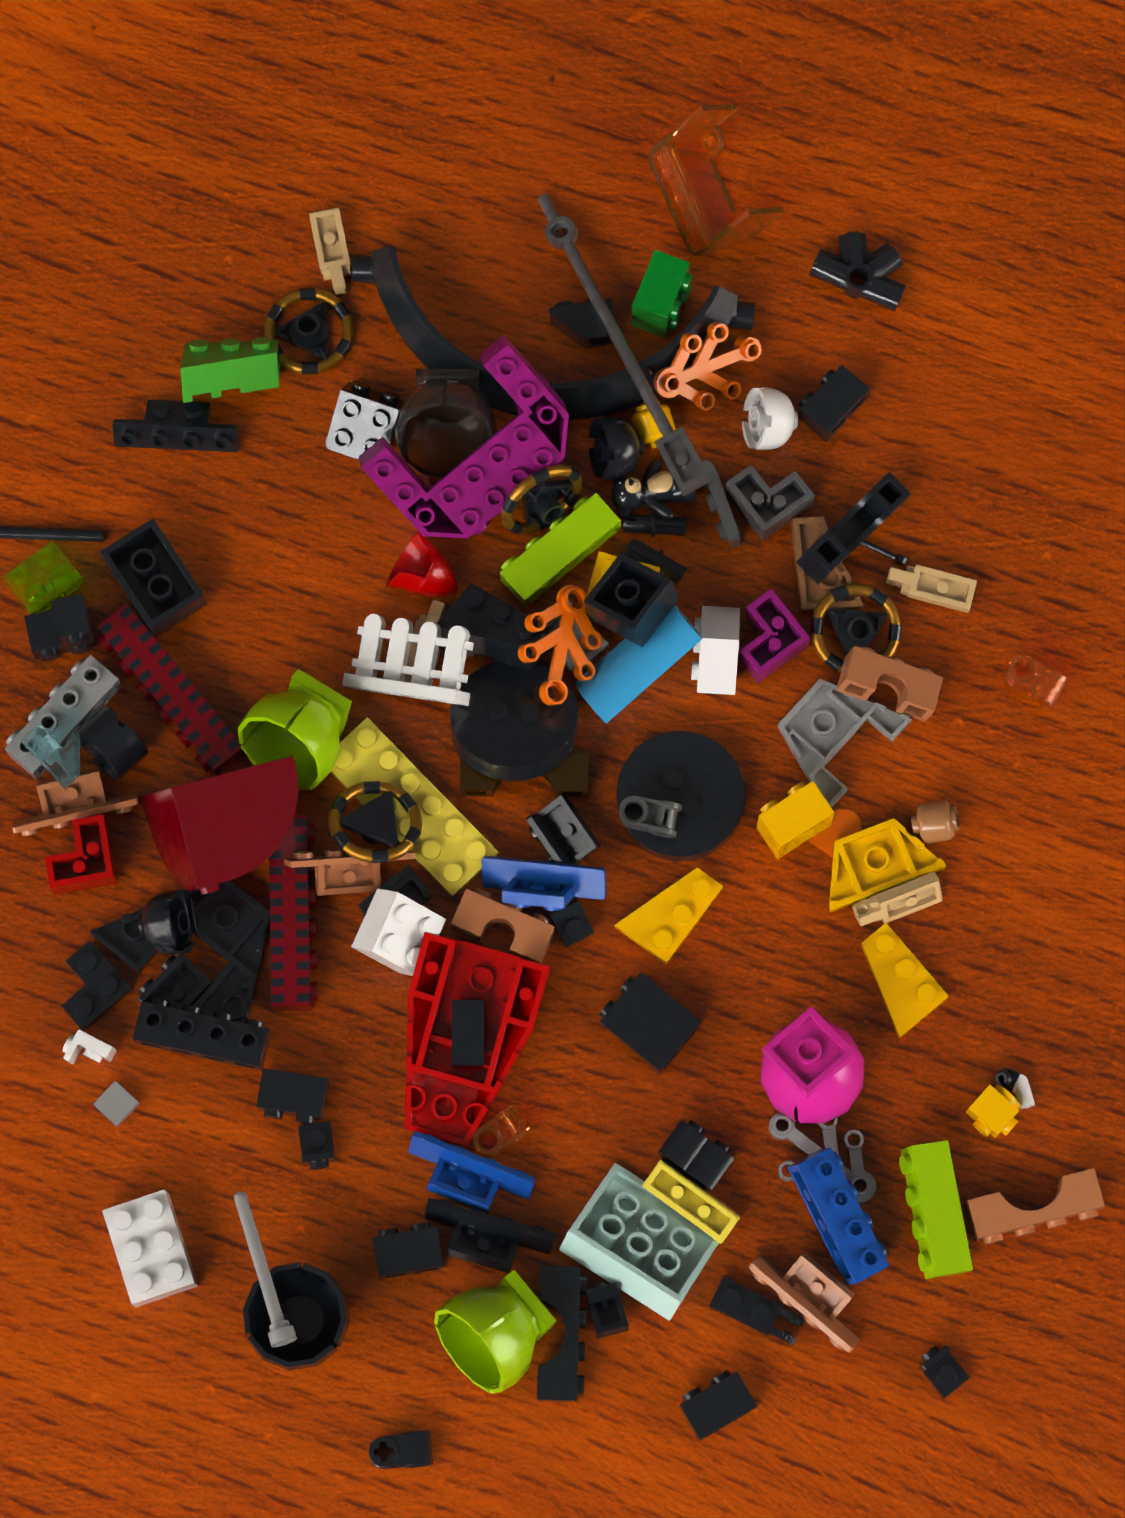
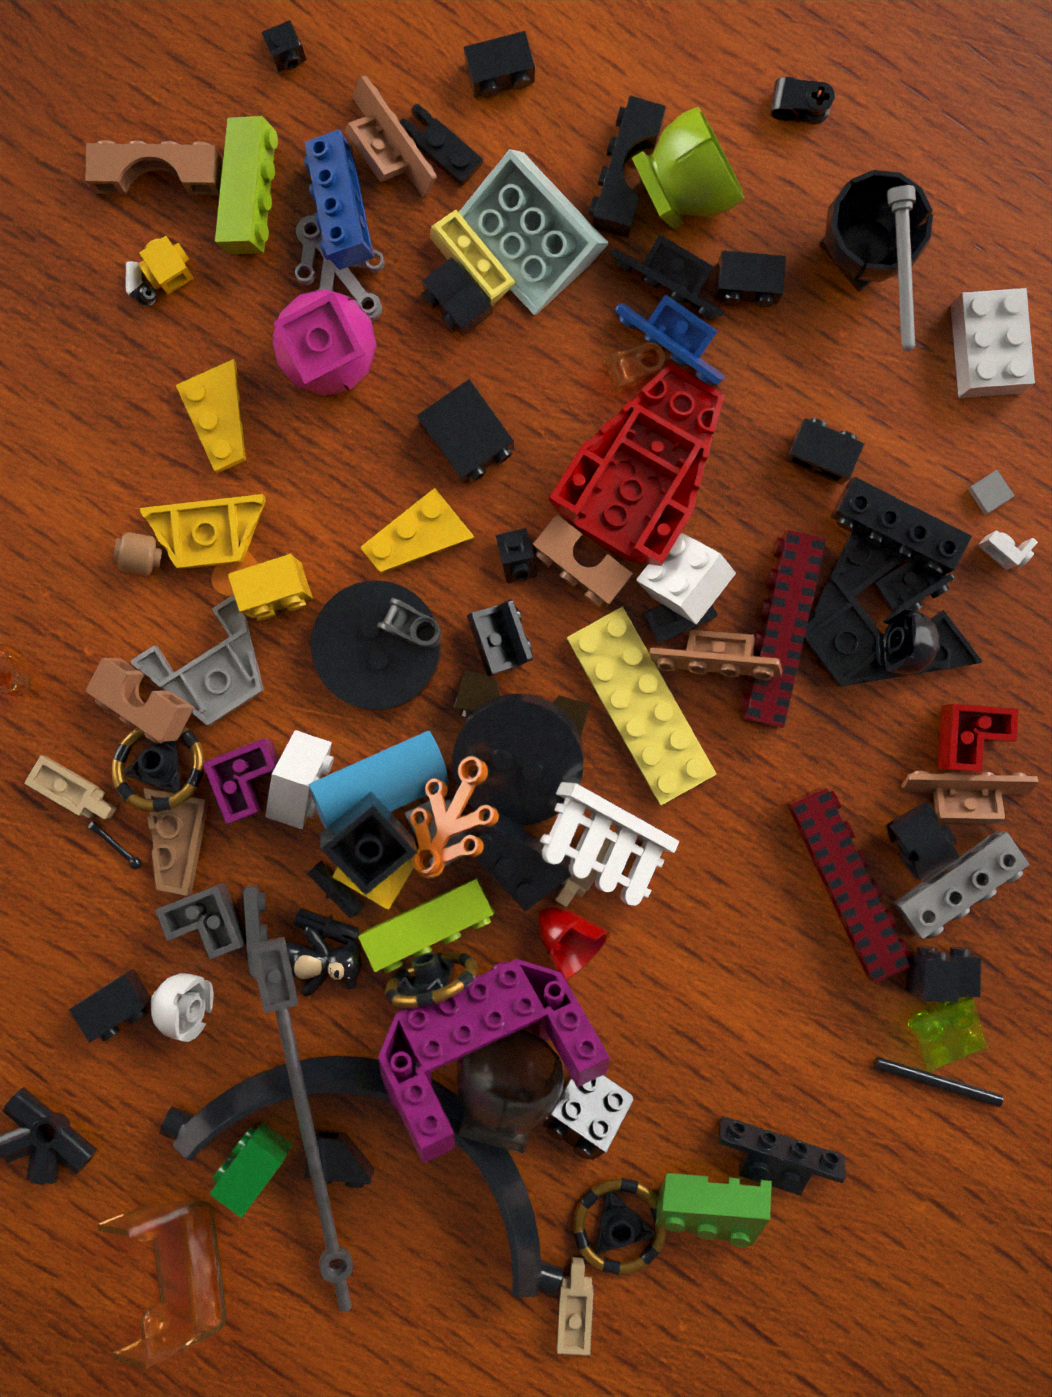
camera: 170 degrees left, 10 degrees up
(60, 761) = (979, 833): clear light blue slope -> none
(102, 987) = (978, 610): black plate -> none
(153, 578) = (841, 1003): black brick -> none
(222, 823) = (832, 726): dark red brick -> none
(298, 724) = (737, 802): lime plate -> none
(317, 1145) = (810, 399): black bracket -> none
(374, 821) = (682, 691): piece -> none
(468, 1032) = (642, 464): black tile -> none
(542, 882) = (534, 588): blue bracket -> none
(606, 1309) = (579, 176): black bracket -> none
(615, 447) = (344, 1015): black cylinder -> none
(646, 426) = (305, 1028): yellow head -> none
(704, 366) = (183, 1087): orange plant -> none
(853, 528) = (149, 853): black arch -> none
(899, 900) = (198, 486): tan hinge -> none

